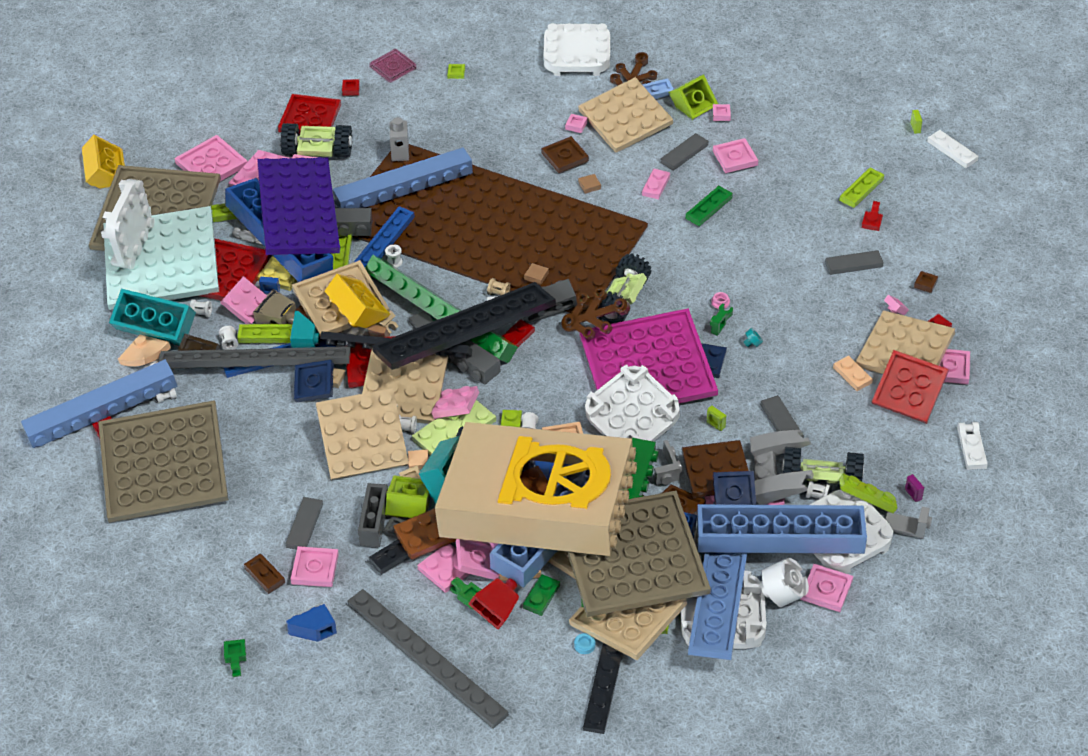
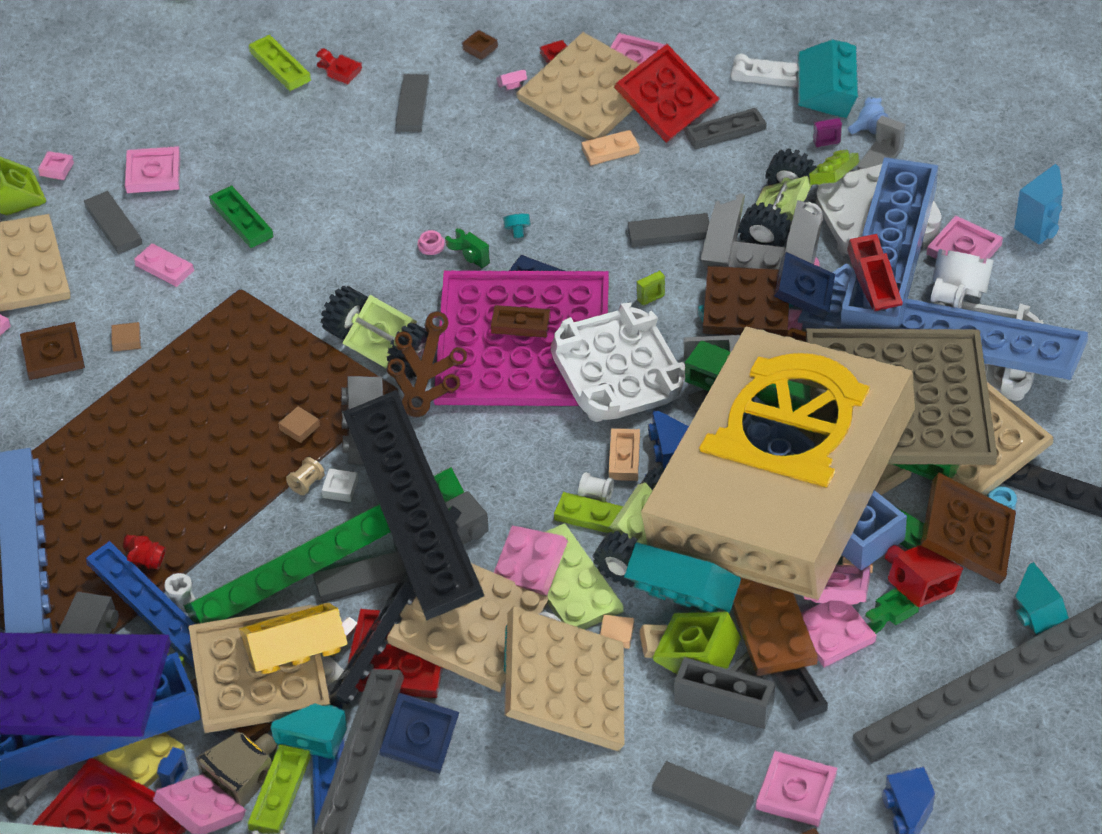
camera: 75 degrees left, 0 degrees up
(414, 230) = (144, 551): none -> red animal
(493, 669) = (1039, 601): none -> teal slope
(541, 619) = (968, 528): none -> reddish brown plate
(651, 352) = (520, 321): none -> reddish brown plate
(730, 512) = (874, 272): none -> red slope
(752, 575) = (948, 293): none -> white bush
(878, 623) = (1040, 206): none -> dark azure slope
(900, 432) = (725, 128): none -> dark grey tile
(944, 512) = (868, 116): none -> light blue animal
(971, 477) = (828, 77): none -> teal slope

